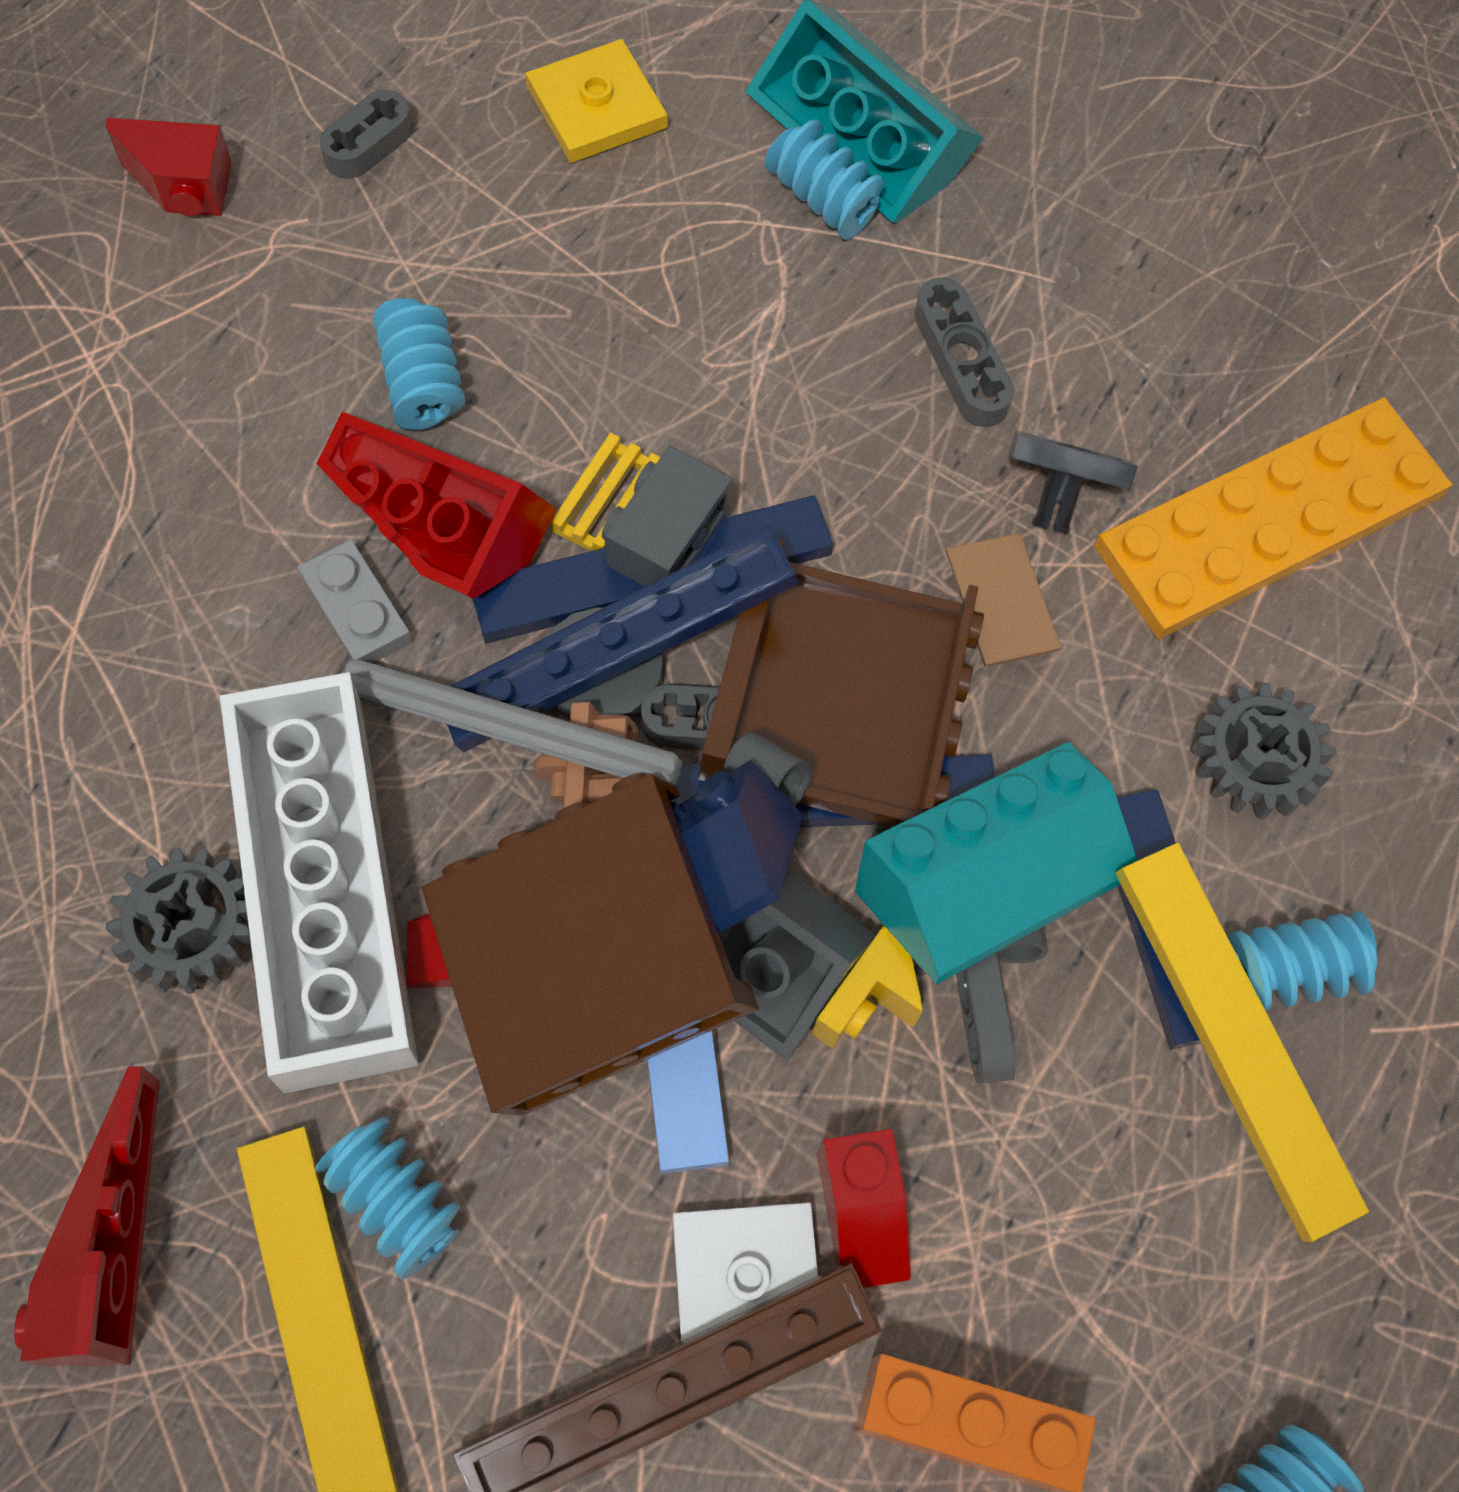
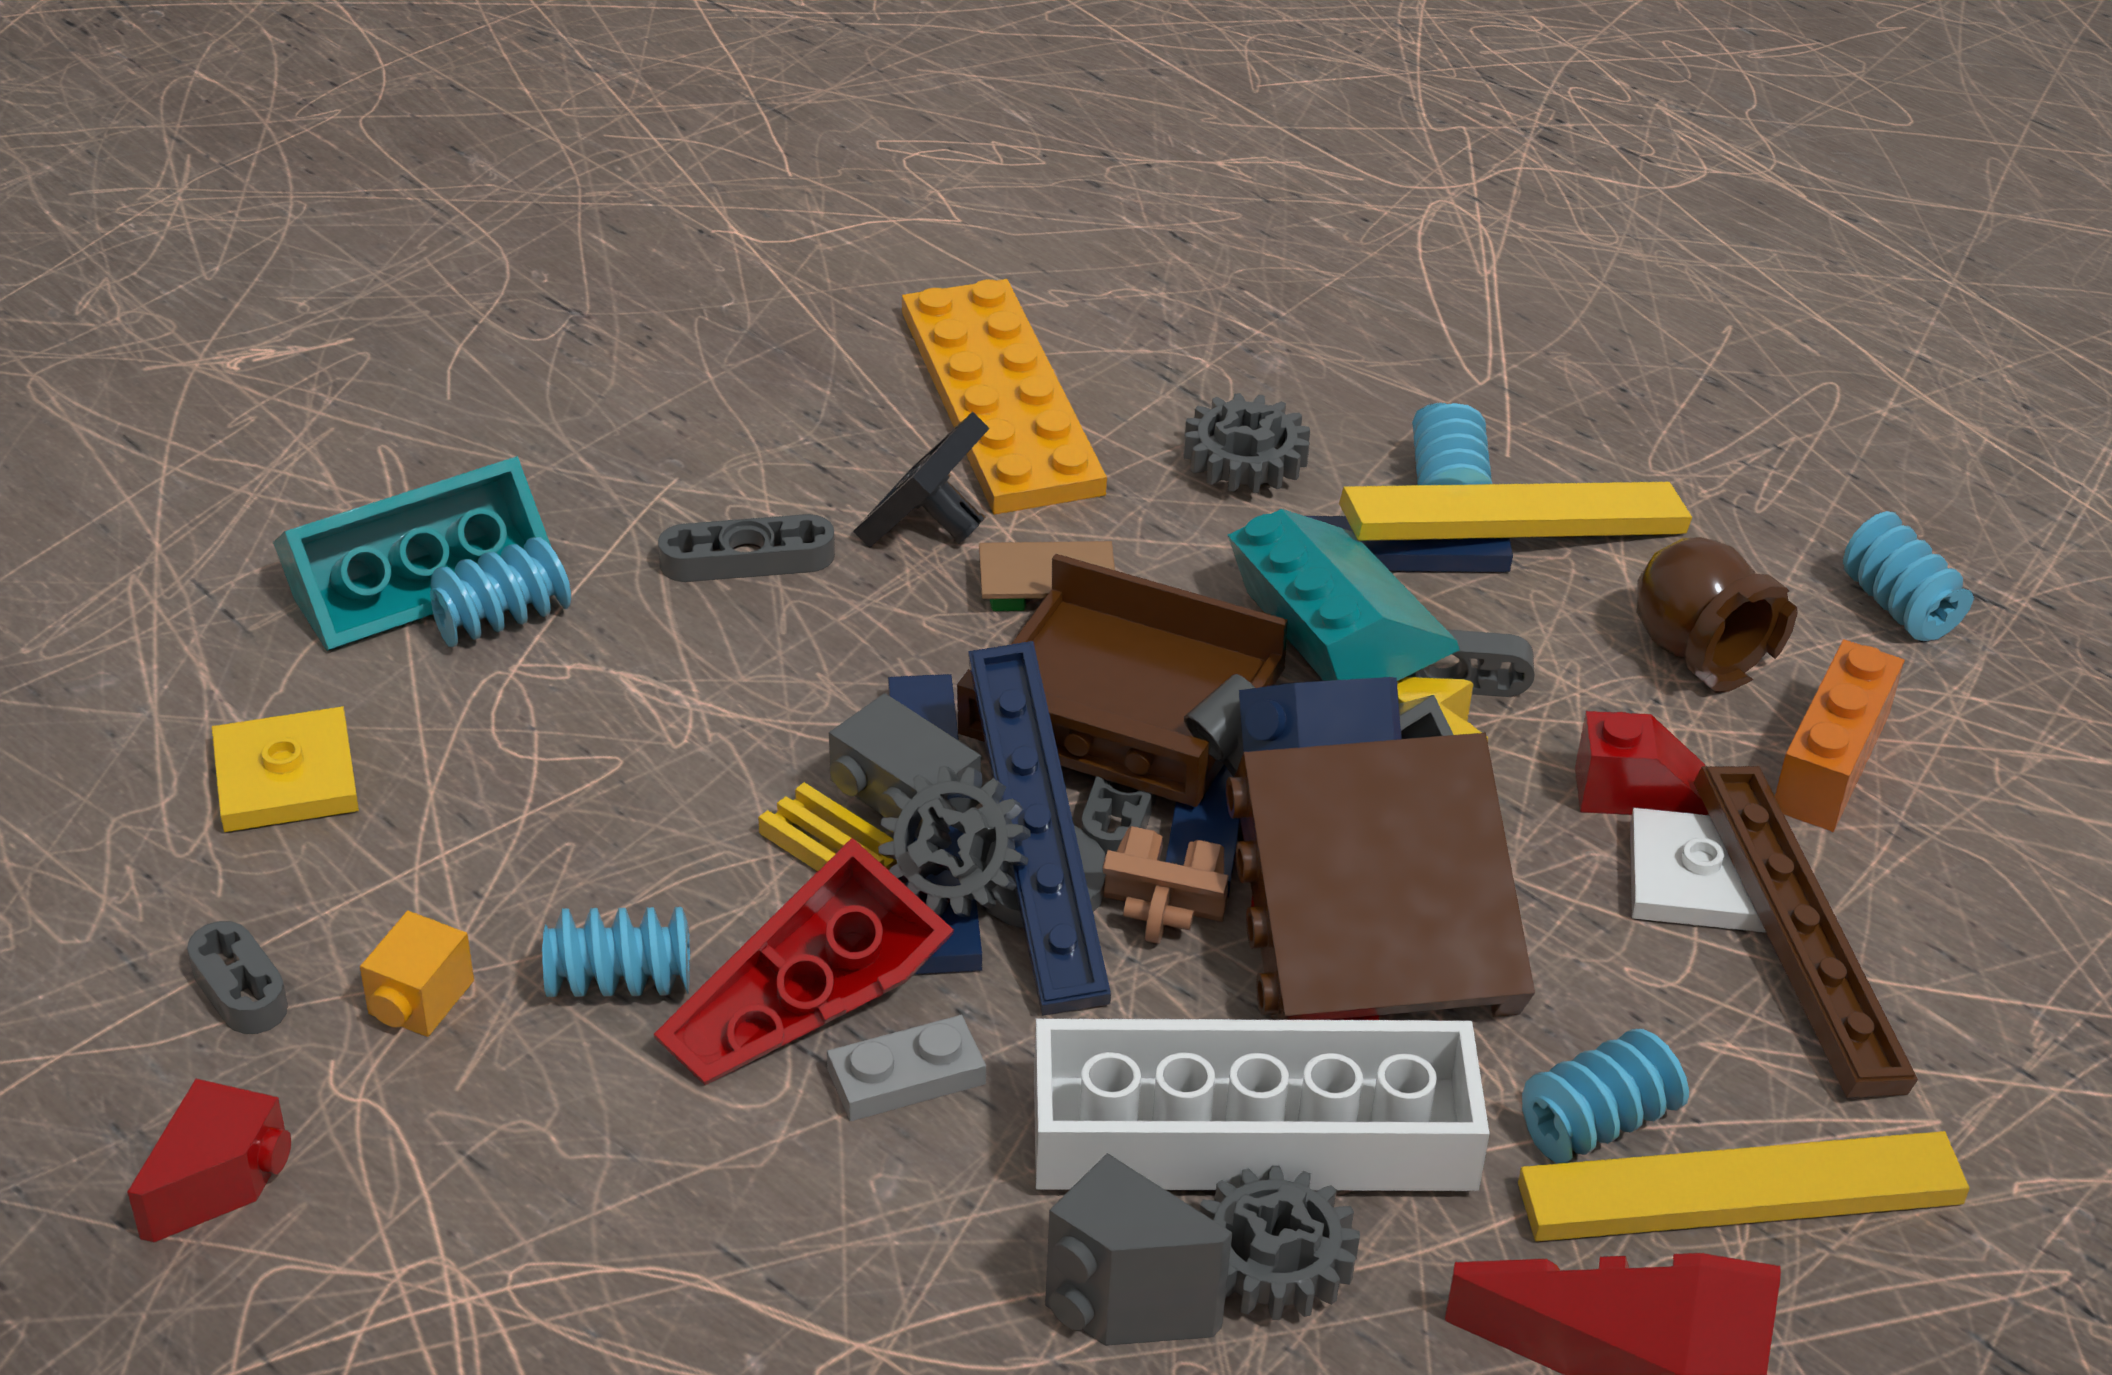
camera: 75 degrees left, 25 degrees down
(115, 795) = (1134, 1260): none -> dark grey slope
(376, 239) = (417, 973): none -> light orange brick
(512, 723) = (1111, 922): light grey axle -> none
(561, 572) = (980, 829): none -> dark grey gear
(688, 1107) = (1552, 884): light blue tile -> none
(1126, 1258) = (1713, 610): none -> reddish brown tile

